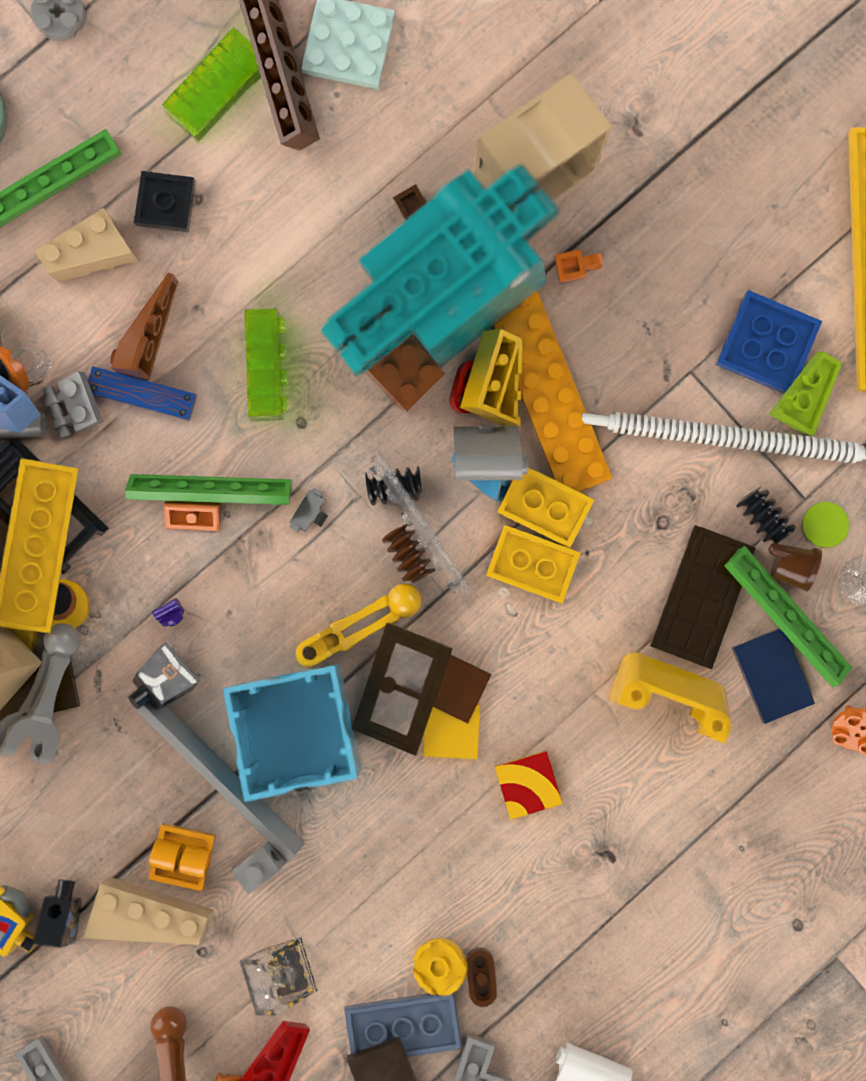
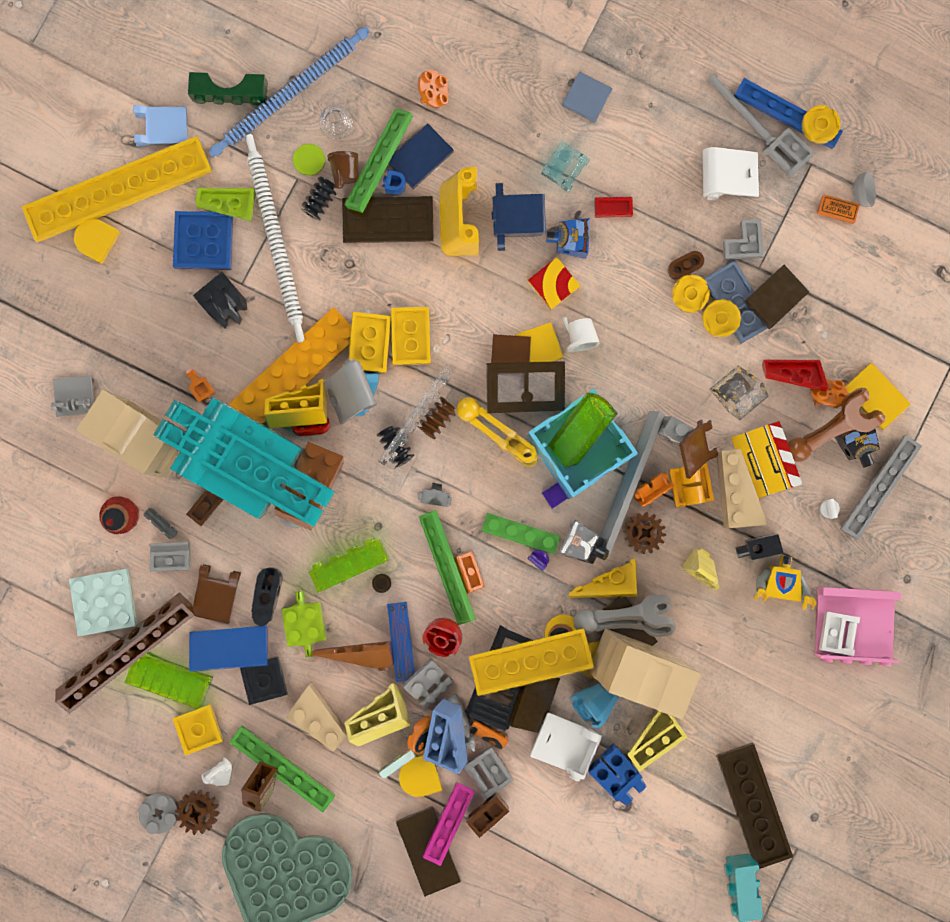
camera: 115 degrees left, 0 degrees up
(29, 139) = (254, 792): none -> reddish brown torso
(33, 53) = (190, 815): none -> reddish brown gear
(53, 327) = (379, 718): none -> light yellow wedge
(64, 824) = (702, 568): none -> light yellow wedge
(72, 1033) = (829, 508): none -> white plate
(73, 101) = (219, 774): none -> white piece
(95, 702) = (616, 583): none -> yellow wing
(120, 447) = (443, 637): none -> red cylinder
(138, 97) = (197, 729): none -> yellow plate
(147, 778) = (654, 525): none -> reddish brown gear
(173, 977) = (768, 459): none -> yellow sticker
(197, 813) = (660, 485): none -> orange hinge
(214, 603) = (520, 533): none -> bright green plate
(215, 279) = (304, 624): none -> lime plate
(222, 172) = (228, 648): none -> blue tile
(222, 883) = (695, 449): none -> reddish brown flag
(225, 397) = (381, 583): none -> dark brown plate
(245, 668) = (554, 495): none -> dark purple plate
(253, 232) = (263, 612): none -> black piece
(297, 182) = (214, 596): none -> reddish brown flag
(310, 740) = (582, 429): none -> clear neon green brick
(370, 144) = (169, 556): none -> light grey plate
(388, 995) = (721, 318): none -> yellow tile
(418, 149) = (160, 523): none -> dark grey axle
(443, 793) = (581, 334): none -> white hat
(450, 102) = (119, 515): none -> tile
(580, 835) = (571, 237): none -> torso
(601, 910) = (613, 207): none -> red tile
(628, 101) = (72, 395): none -> light grey hinge
(638, 773) = (517, 215): none -> dark blue piece
(678, 336) = (221, 300): none -> black plate
(690, 861) = (559, 163): none -> clear light blue plate
(749, 624) = (394, 183): none -> blue plate
(769, 938) = (587, 97): none -> sand blue tile
(823, 206) = (95, 239): none -> yellow tile

